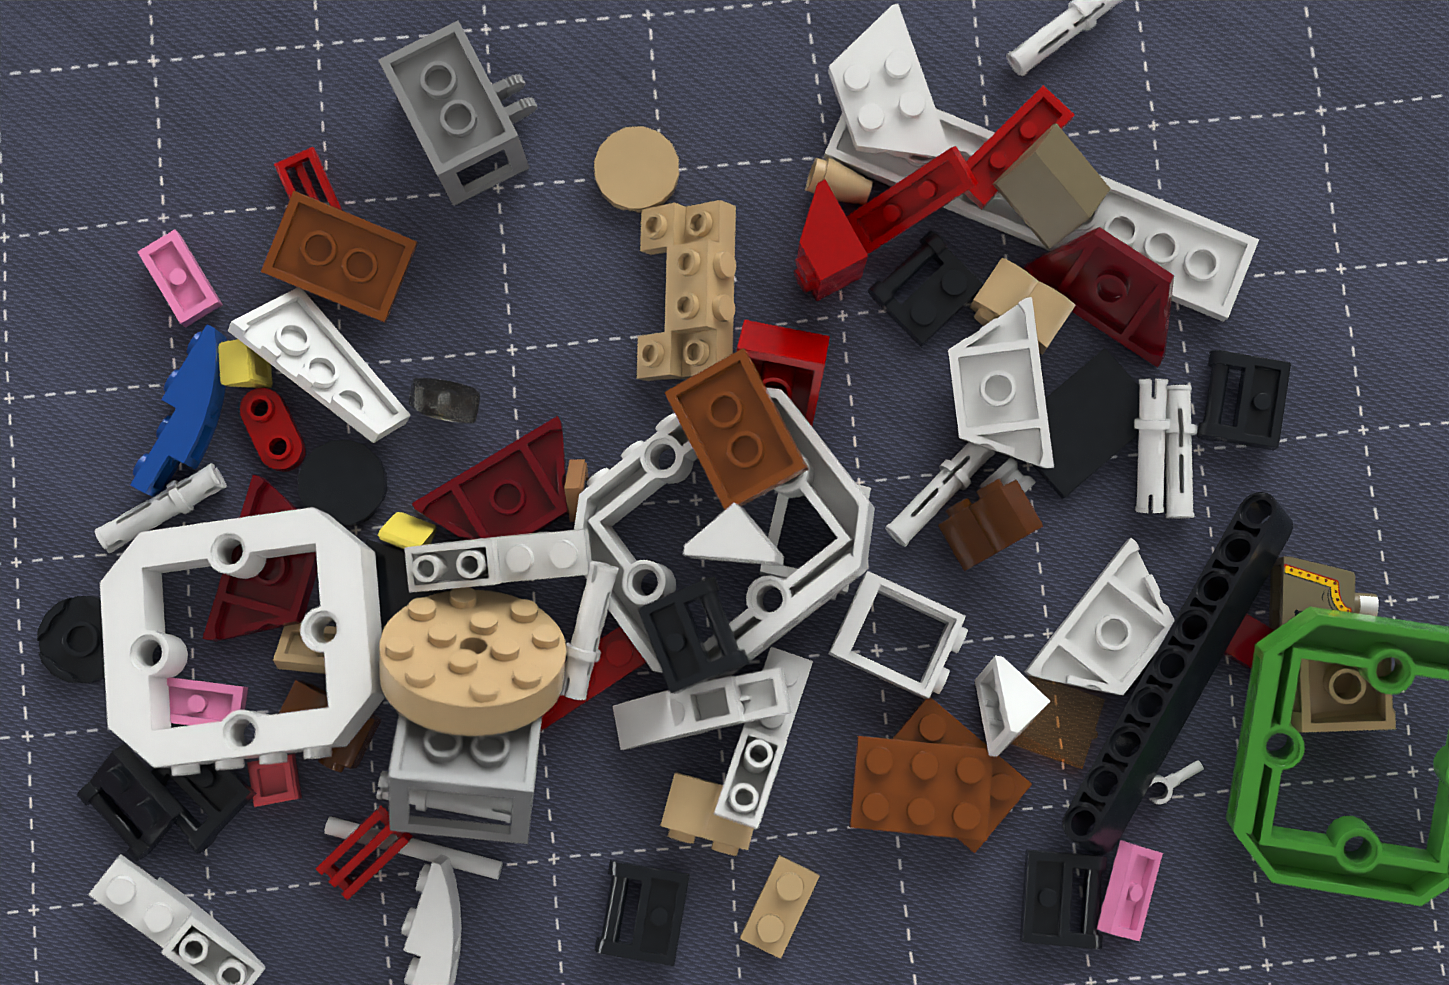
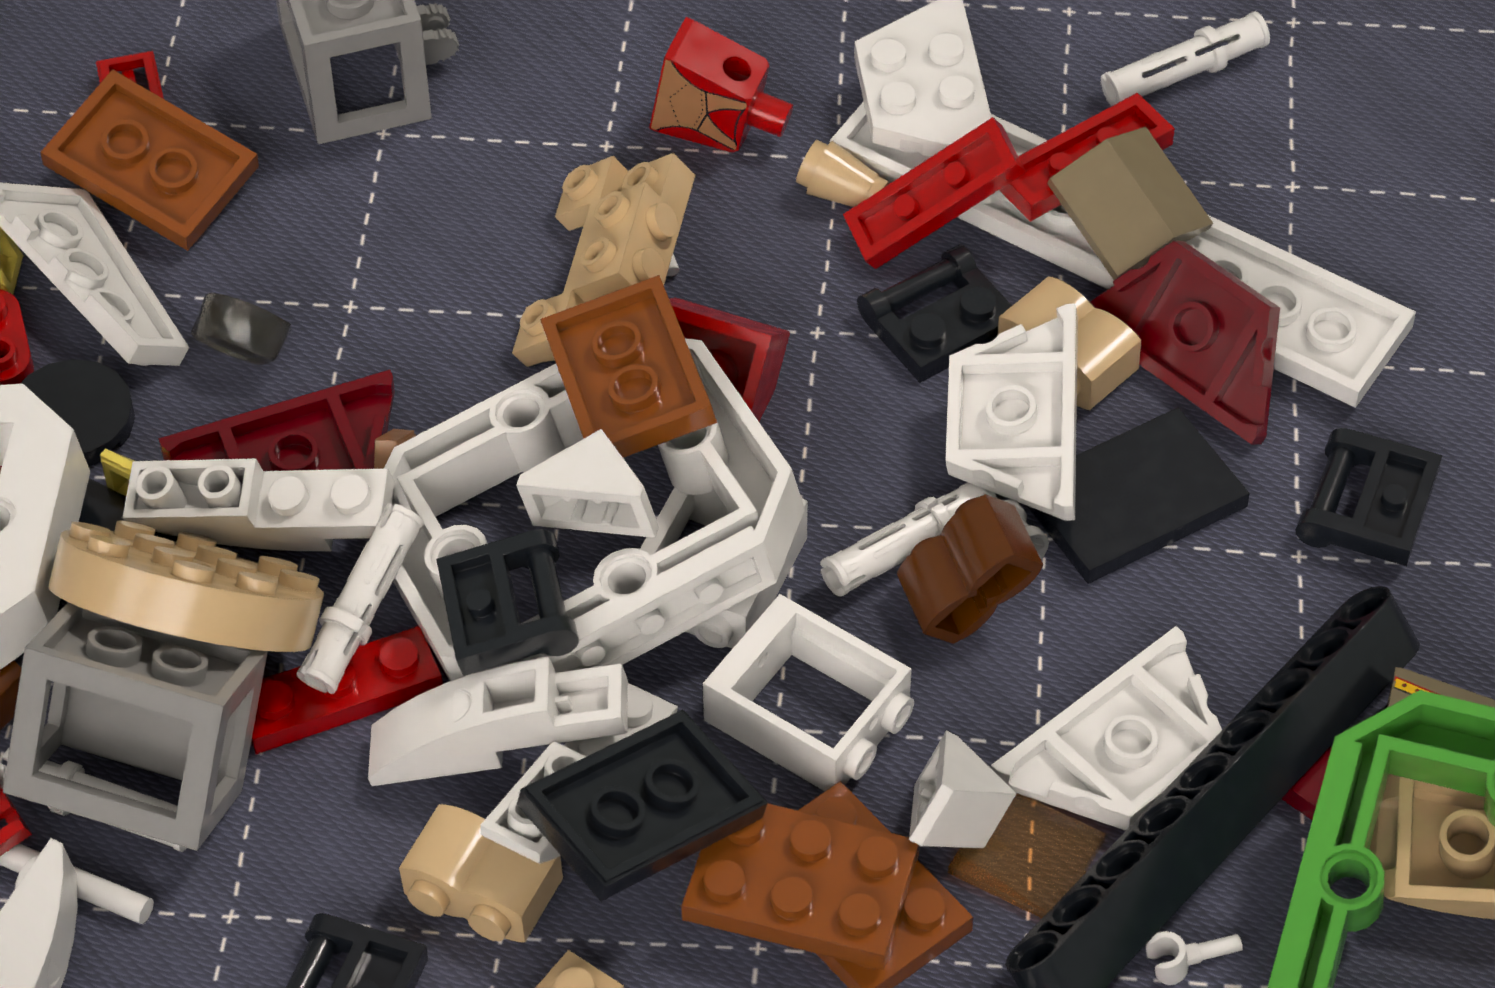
camera: 10 degrees right, 30 degrees down
(636, 169) = (572, 129): tan tile -> none
(736, 127) = (714, 91): none -> red torso
(816, 777) = (641, 804): none -> black tile
(828, 248) = (807, 229): red slope -> none
(1151, 445) = (1226, 495): white pin -> none
(1179, 453) = (1270, 485): white pin -> none

